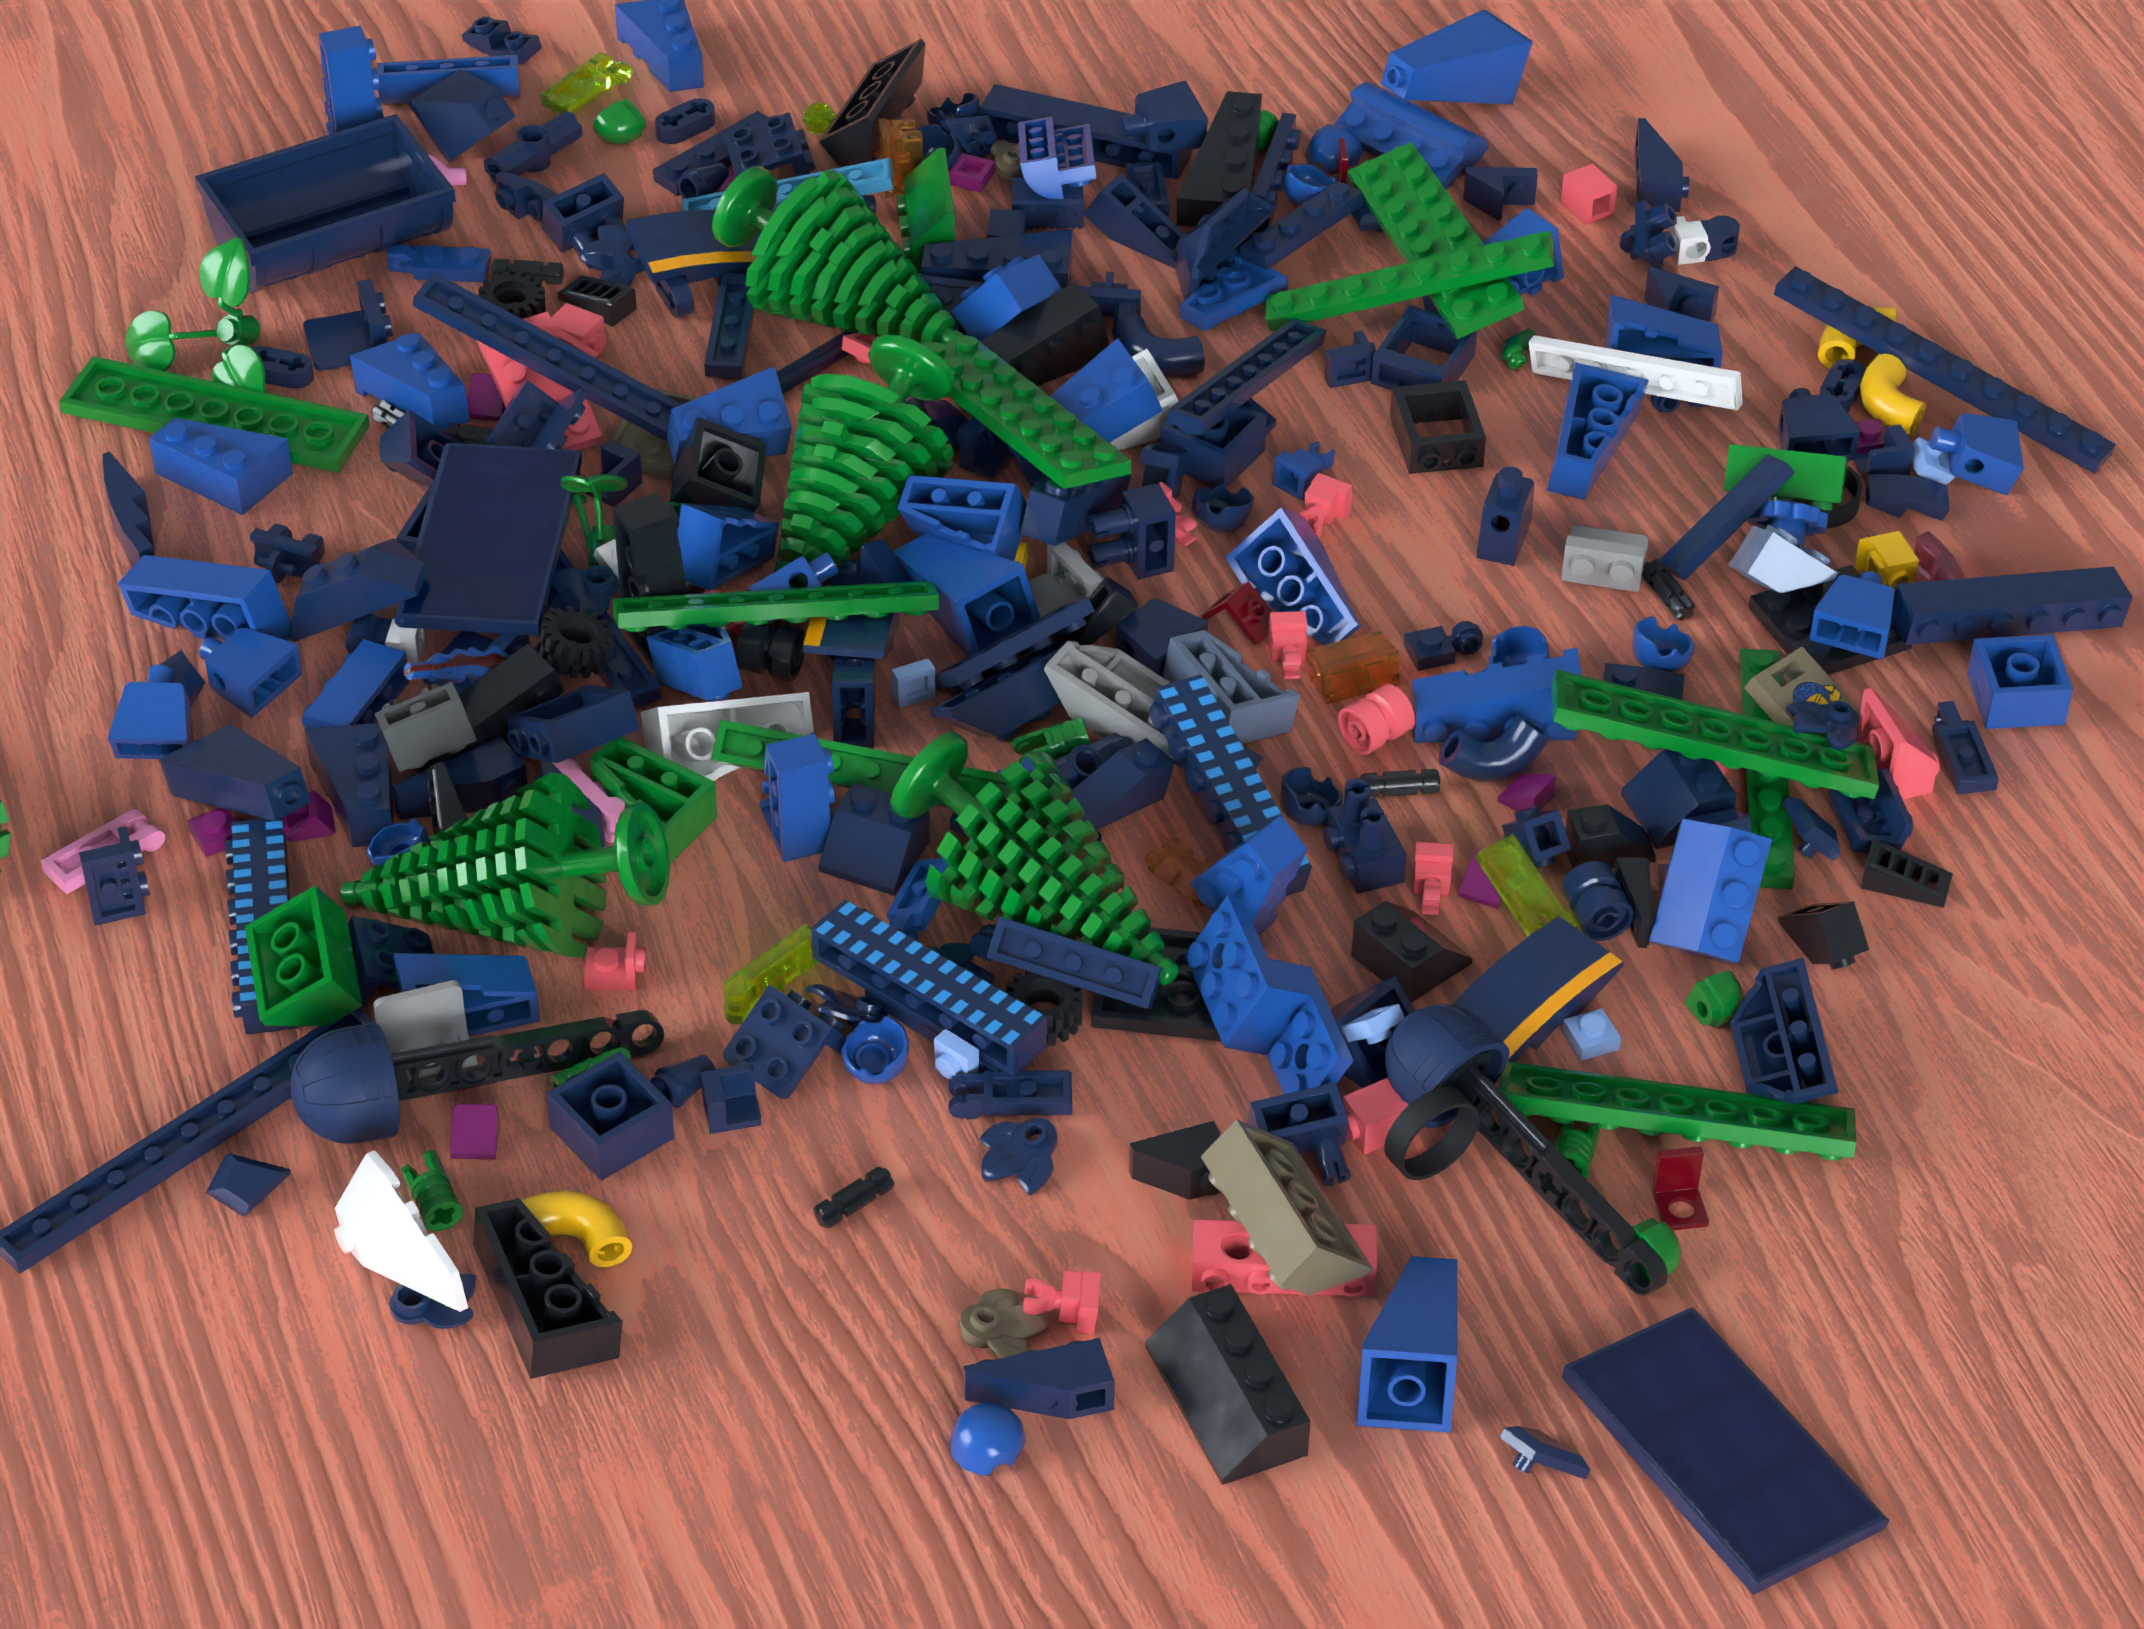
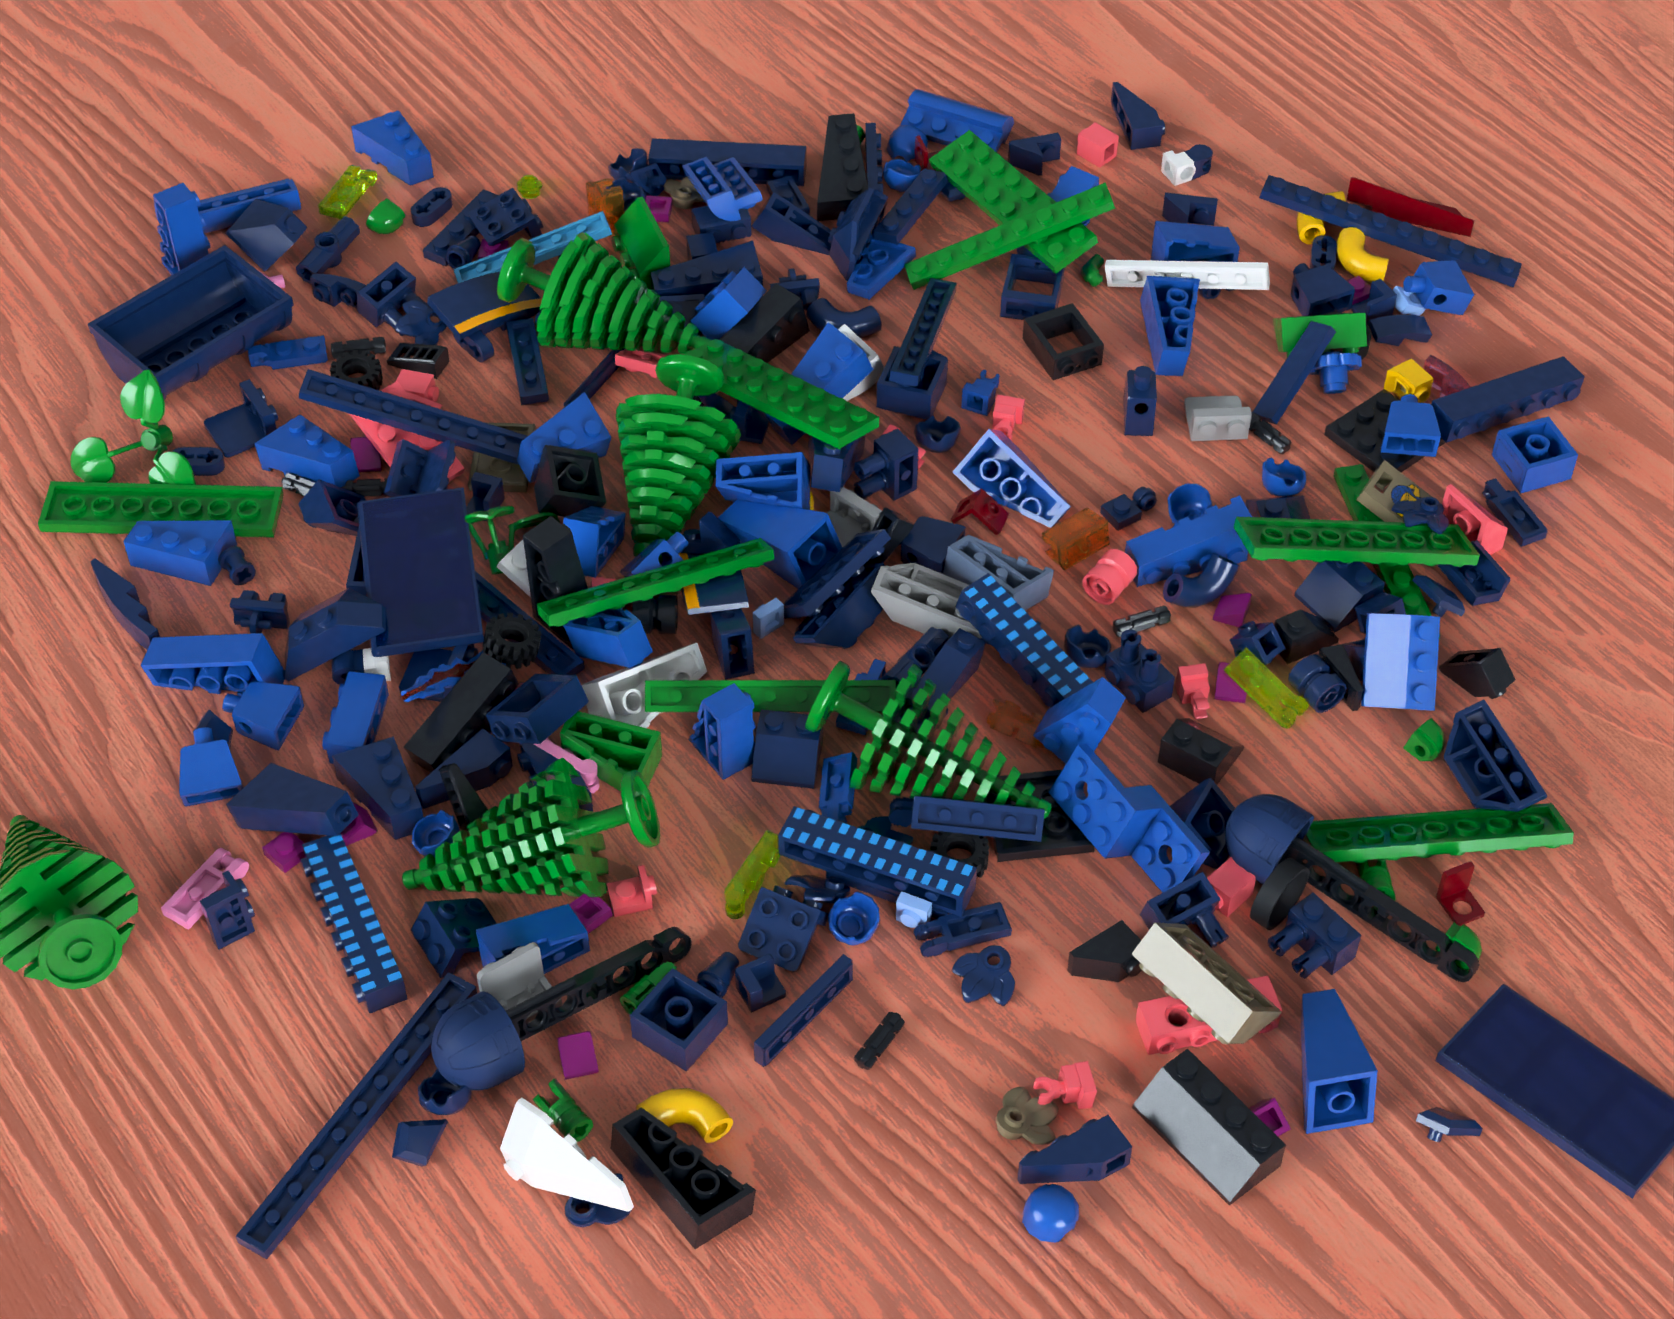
camera: 15 degrees left, 5 degrees up
(278, 490) = (239, 569): none -> dark blue bush
(293, 1141) = (441, 1096): none -> dark blue hair
(303, 962) = (404, 951): green slope -> none
(425, 726) = (429, 735): dark grey brick -> none
(495, 39) = (265, 168): dark blue slope -> none
(553, 975) = (591, 911): none -> magenta plate
(584, 589) = (501, 596): dark blue plate -> none
(770, 1141) = (803, 1011): none -> dark blue tile
(880, 94) = (570, 171): black slope -> none
(1055, 741) = (891, 642): green hinge -> none
(1163, 465) = (887, 409): dark blue panel -> none
(1167, 119) = (790, 143): dark blue torso -> none
(1288, 641) = (1023, 528): coral piece -> none
(1315, 1395) = (1271, 1115): none -> magenta slope
(1350, 363) = (984, 304): dark blue bracket -> none
(1374, 1025) = (1211, 819): light blue plate -> none
(1463, 62) = (978, 63): blue slope -> none
(1471, 1195) = (1320, 933): none -> dark blue brick
(1539, 985) = (1301, 757): dark blue slope -> none
(1591, 1034) = (1349, 786): light blue plate -> none
(1646, 236) = (1149, 170): dark blue hips -> none
(1777, 564) = (1342, 398): slope -> none
(1892, 872) = (1497, 612): black slope -> none
(1984, 347) = (1409, 209): none -> dark red wedge

